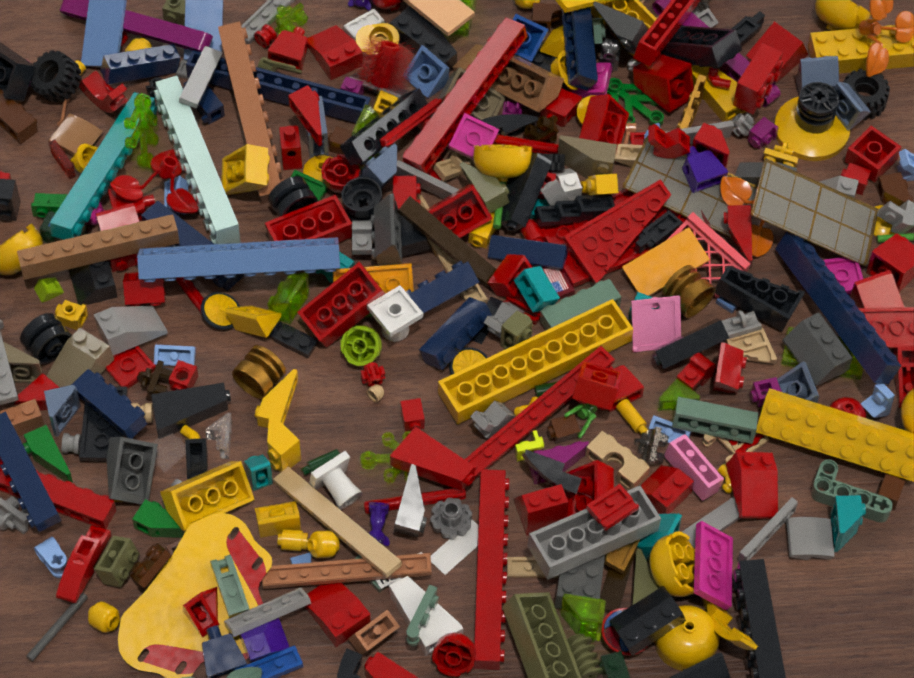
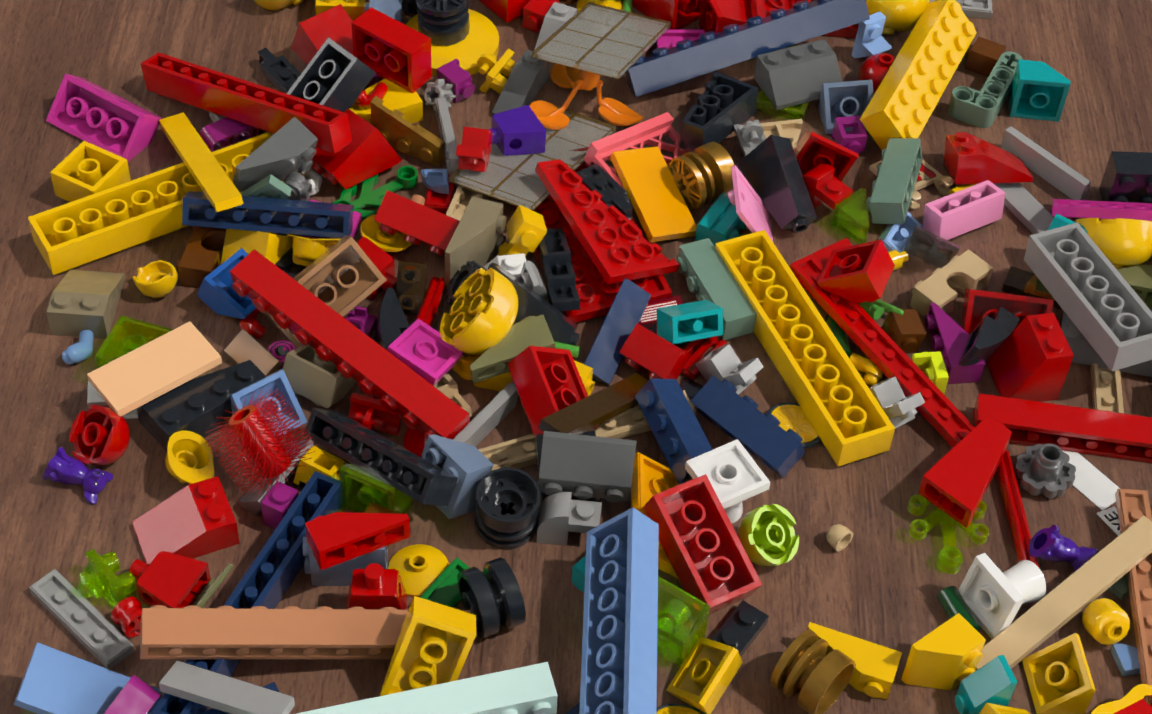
camera: 85 degrees left, 10 degrees down
(292, 540) = (1099, 660): yellow brick -> none
(314, 221) = (547, 581): red slope -> none
(337, 173) = (448, 531): red cylinder -> none
(368, 18) = (145, 481): white plate -> none
(373, 374) = (812, 533): red gear -> none
(404, 187) = (507, 450): red brick -> none
(410, 123) = (378, 424): red axle -> none
(411, 509) = (1046, 496): slope -> none
(412, 414) = (880, 495): red brick -> none
(515, 330) = (760, 343): olive brick -> none
(533, 232) = (588, 323): red brick -> none
(612, 507) = (1075, 257): red plate -> none
(667, 488) = (995, 242): red slope -> none
(713, 140) = (477, 111): red slope -> none
(740, 228) = (613, 113): red slope -> none
(810, 538) = (1050, 131): light grey slope -> none

